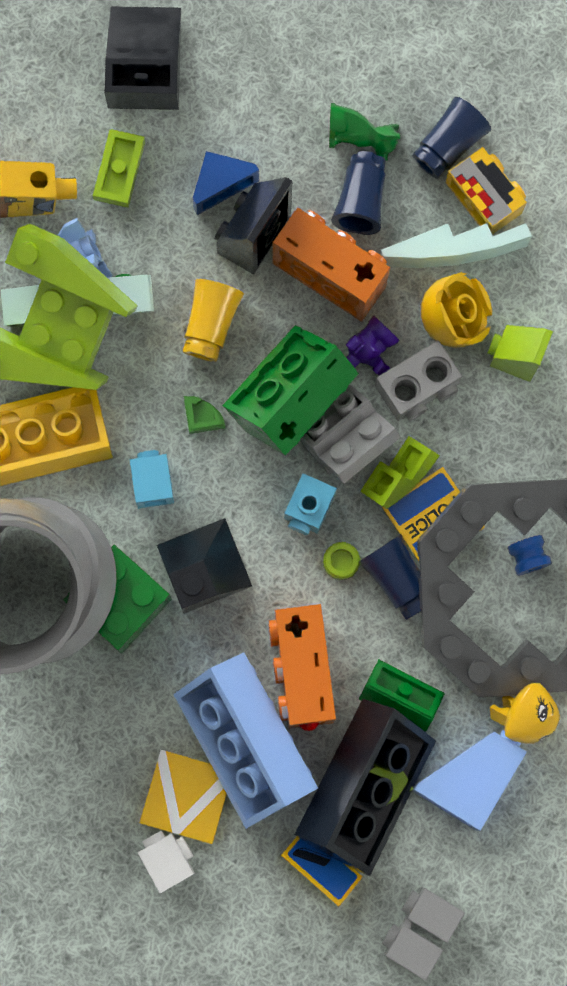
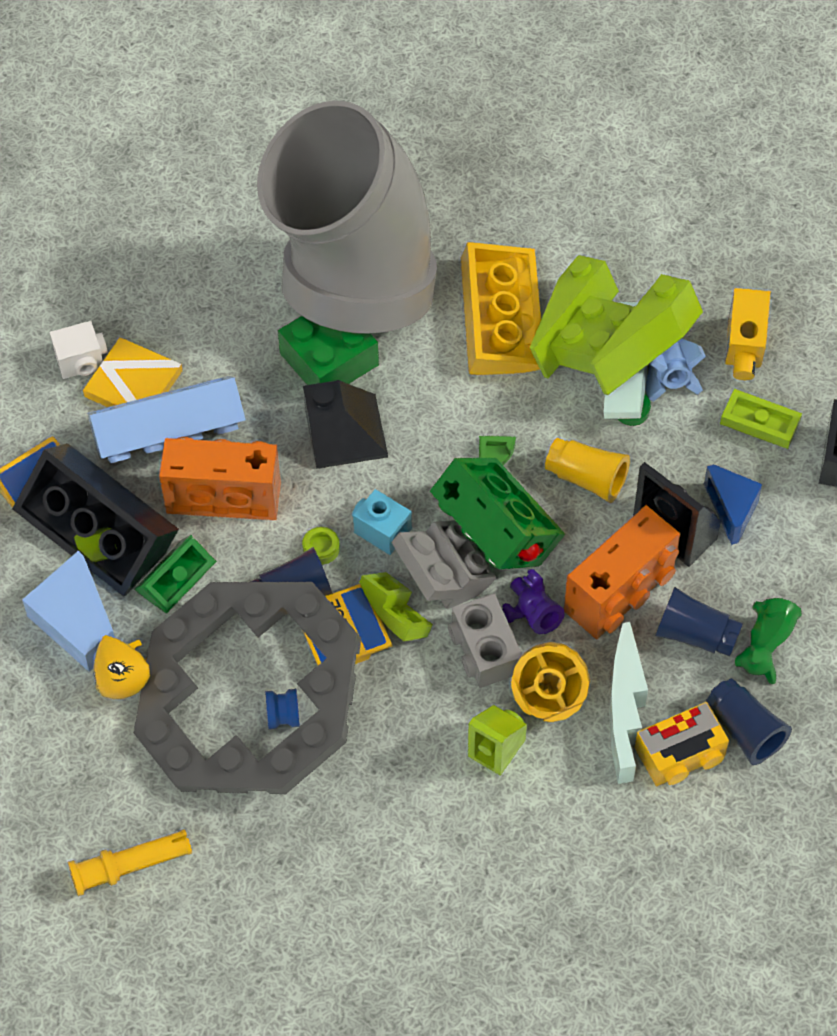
camera: 105 degrees right, 20 degrees down
(151, 479) = (437, 394): medium azure brick -> none

